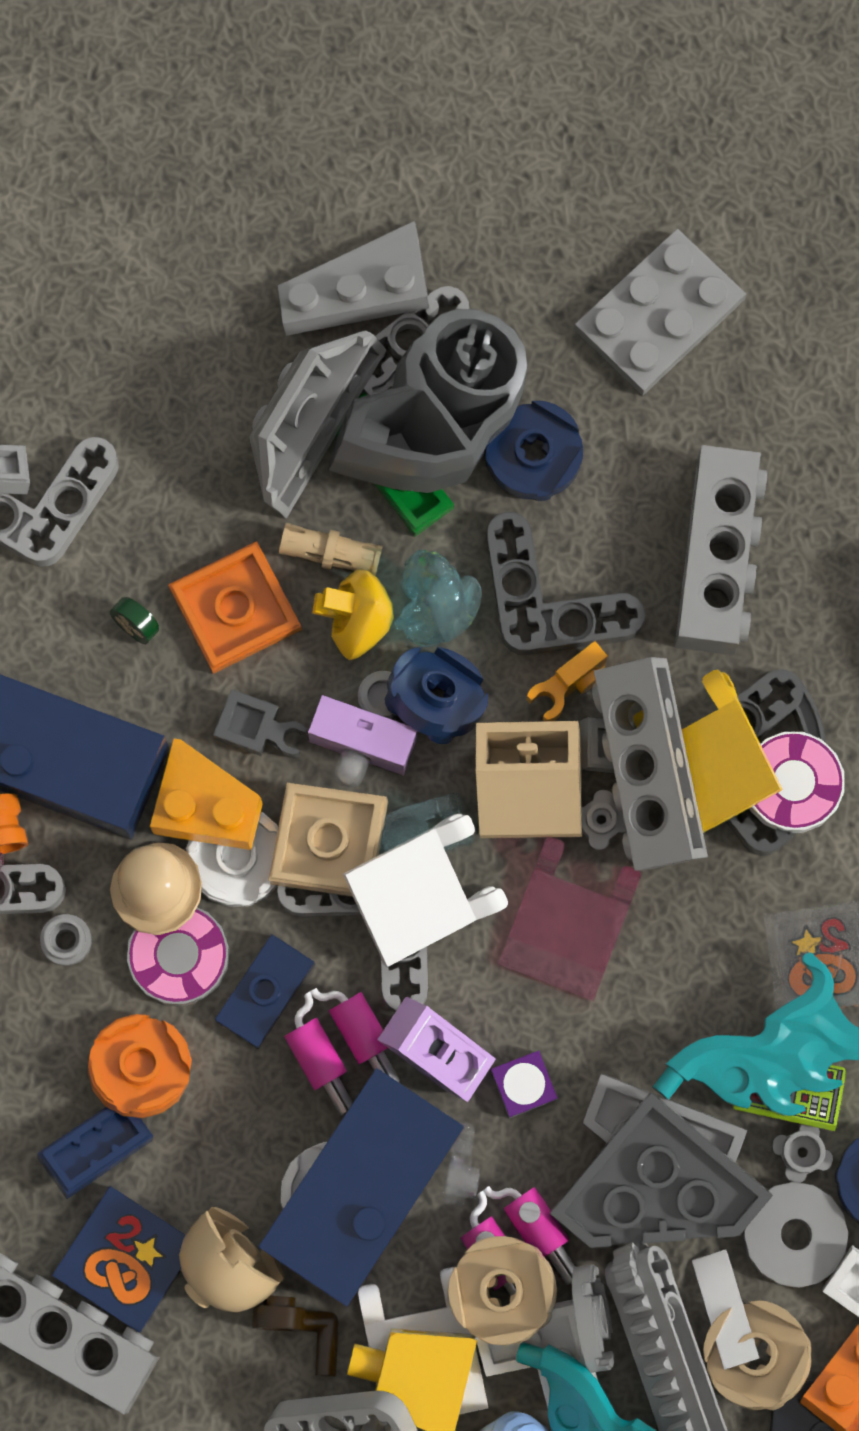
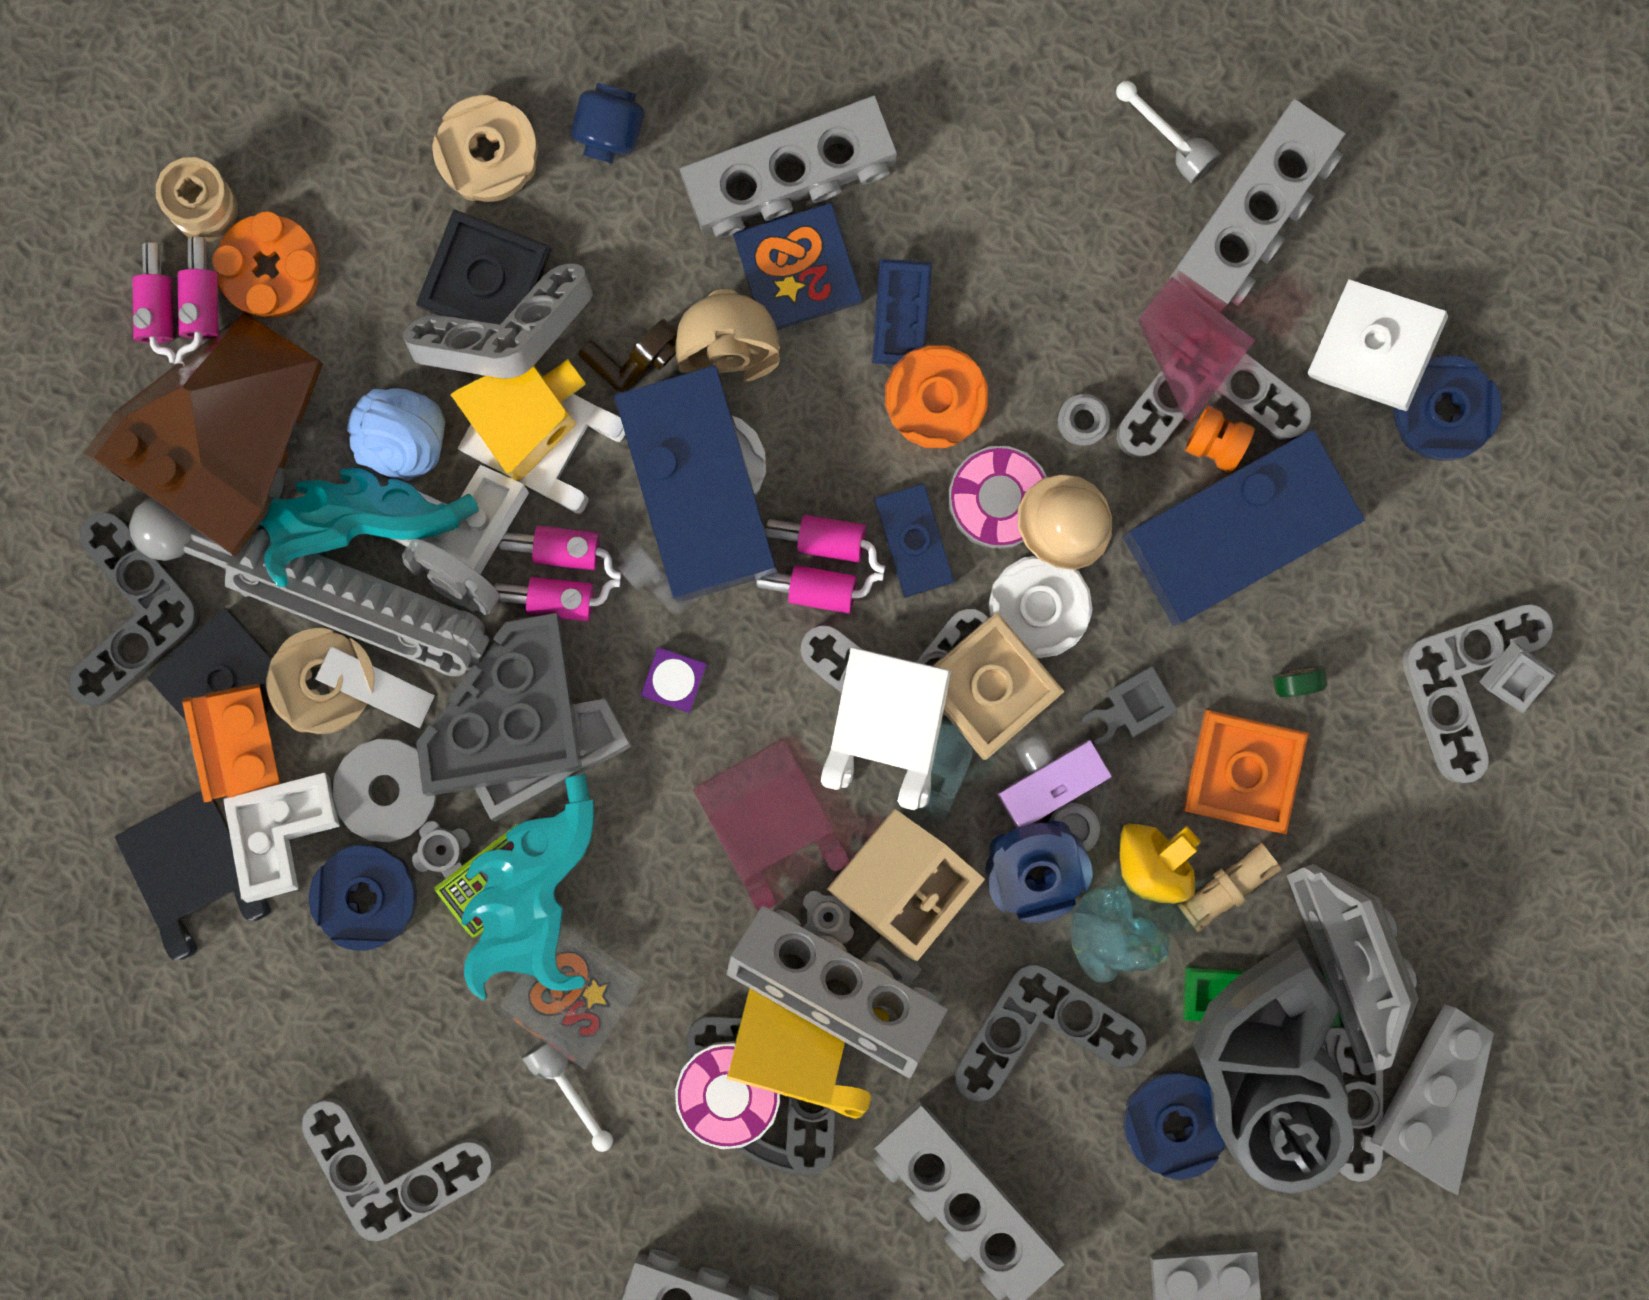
camera: 130 degrees right, 10 degrees up
(204, 802) = (1103, 614): light orange wing -> none
(436, 1049) = (754, 631): lavender piece -> none
(528, 1308) = (521, 496): tan plate -> none
(573, 675) = (961, 995): light orange plate -> none

